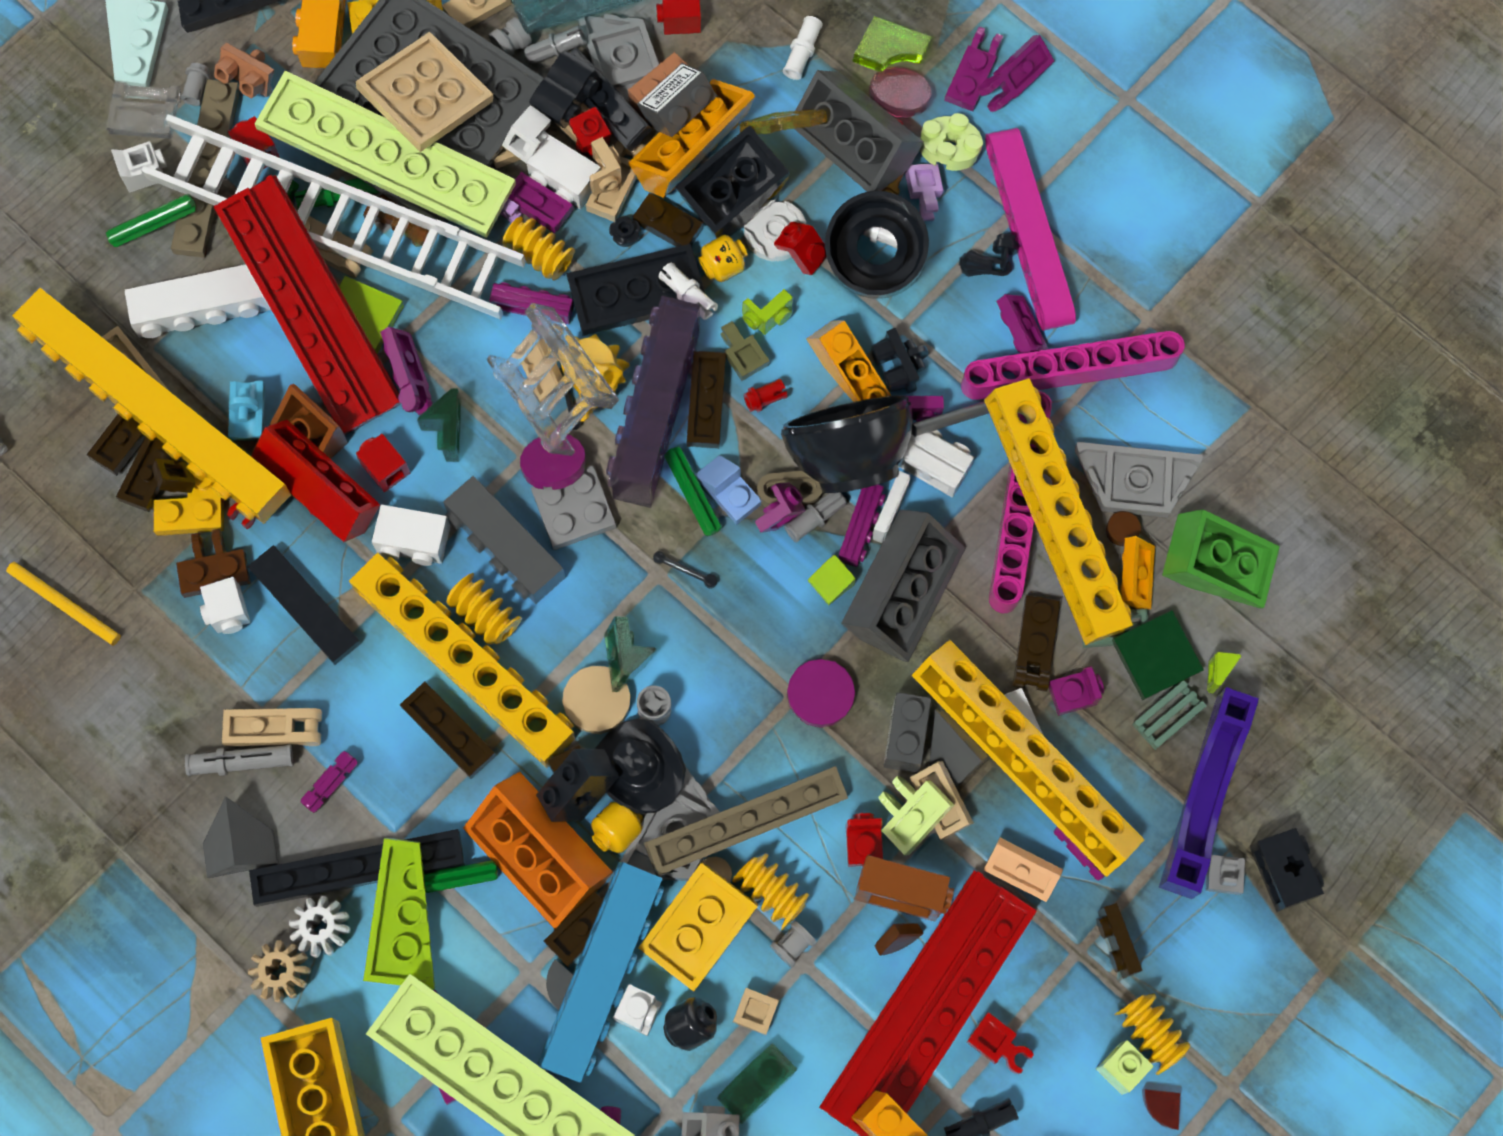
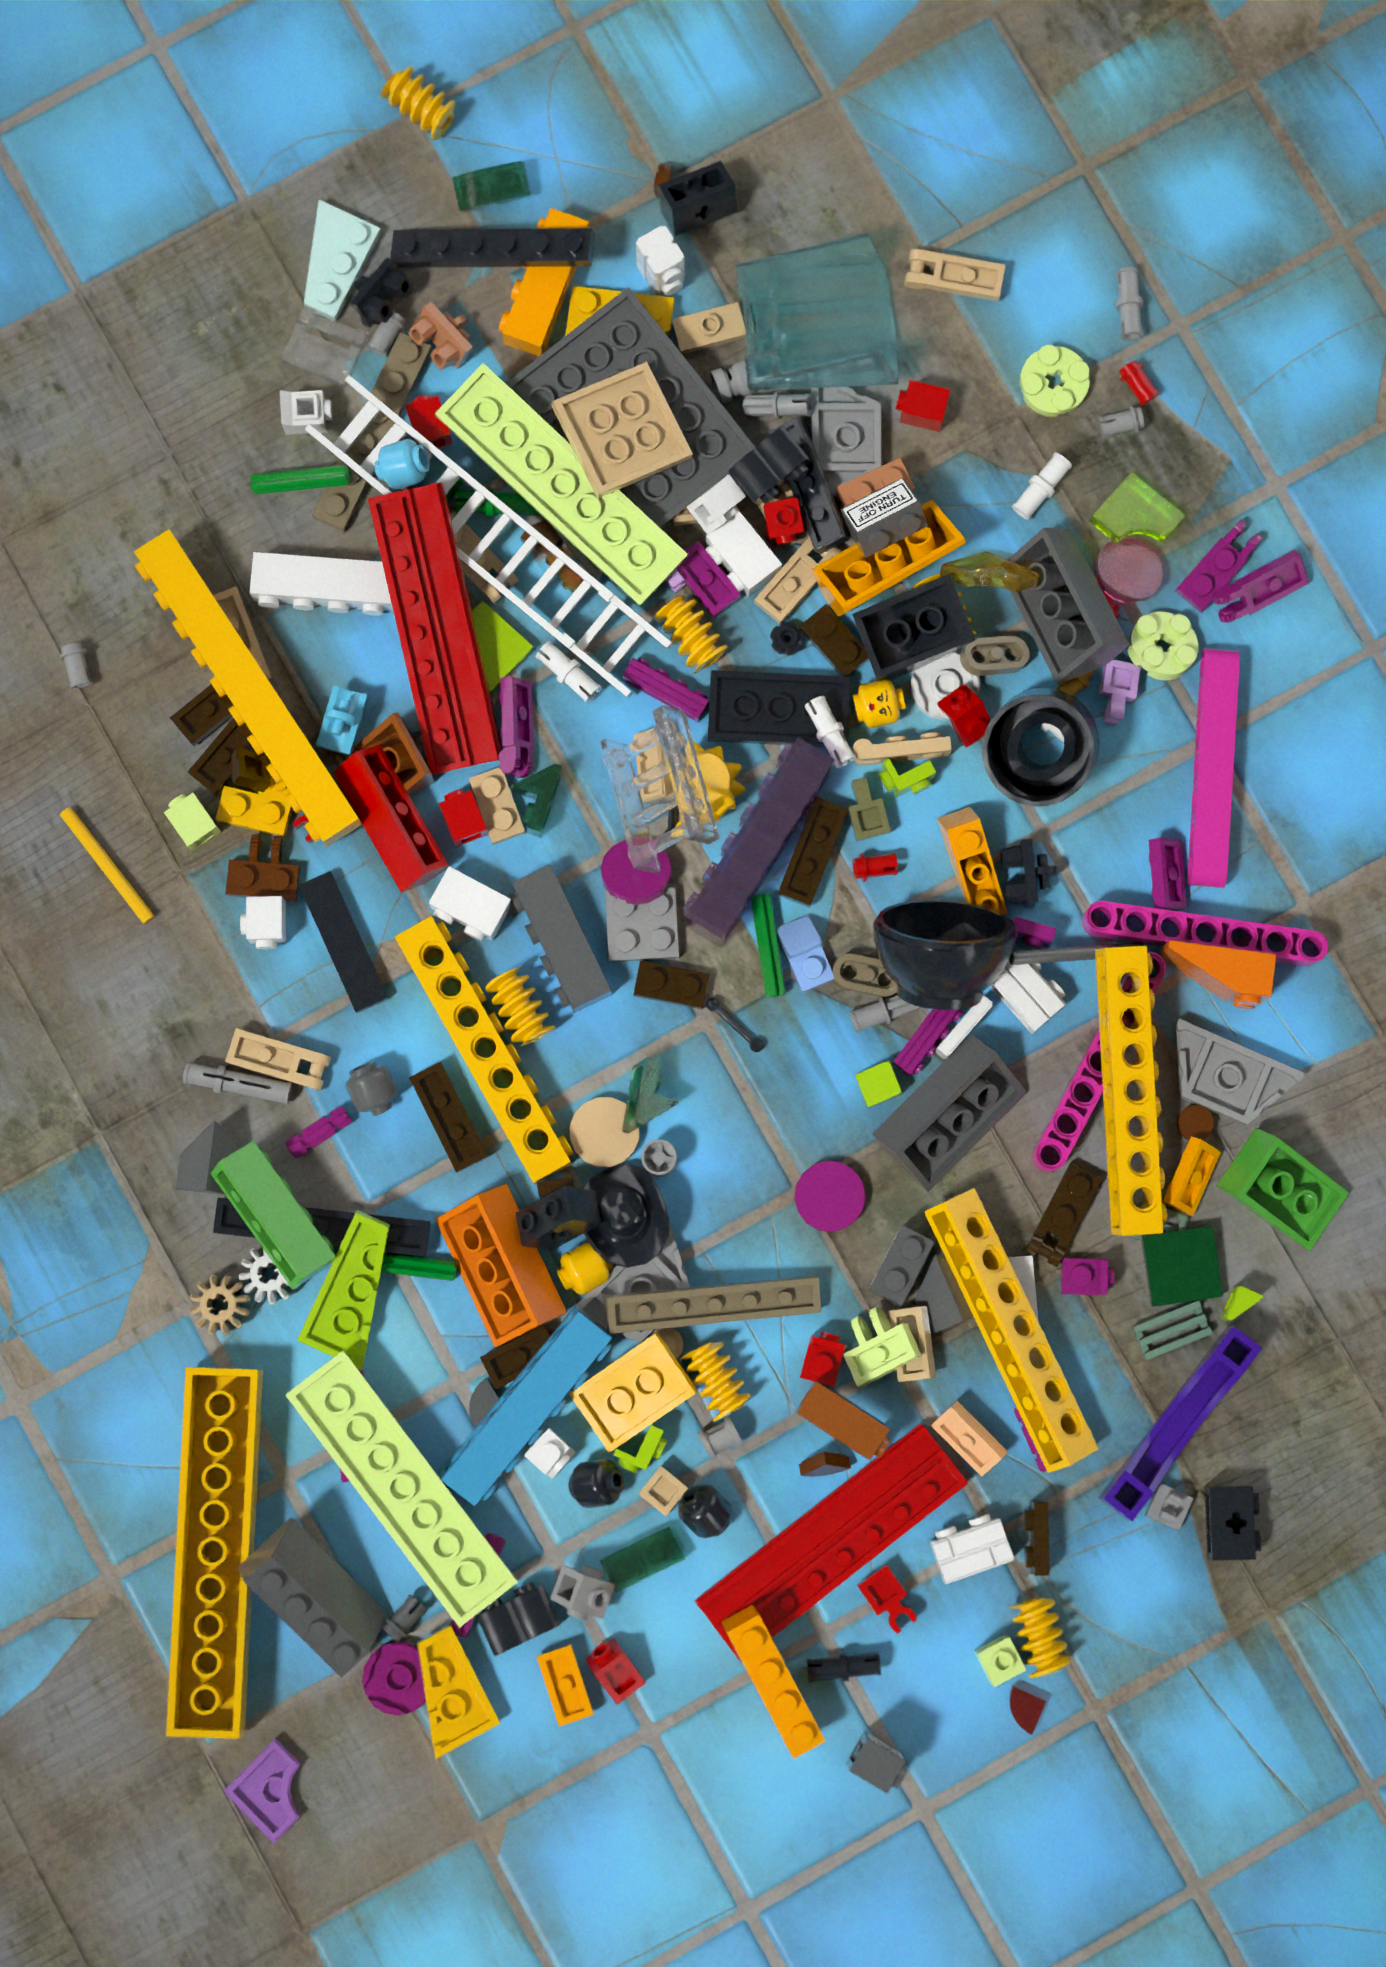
camera: 20 degrees right, 10 degrees up
(132, 539) = (191, 821): none -> yellowish green brick
(178, 50) = (378, 292): none -> black hips
(236, 173) = (402, 464): none -> medium azure head
(305, 866) = (273, 1214): none -> bright green brick
(367, 725) = (371, 1088): none -> dark grey head
(411, 444) = (497, 806): none -> tan plate
(440, 312) = (568, 672): none -> white pin
(610, 173) = (791, 560): tan bracket -> none
(616, 552) = (671, 985): none -> dark brown plate
(731, 973) = (651, 1447): none -> lime bracket
(756, 290) = (900, 750): none -> tan plate
(784, 510) = (857, 995): magenta bracket -> none
(801, 1016) = (704, 1511): none -> black head
(809, 190) = (991, 655): none -> dark tan plate
(976, 264) = (1144, 790): black piece -> none
(1060, 972) = (971, 1549): none -> white brick
(1101, 387) = (1227, 972): none -> orange slope

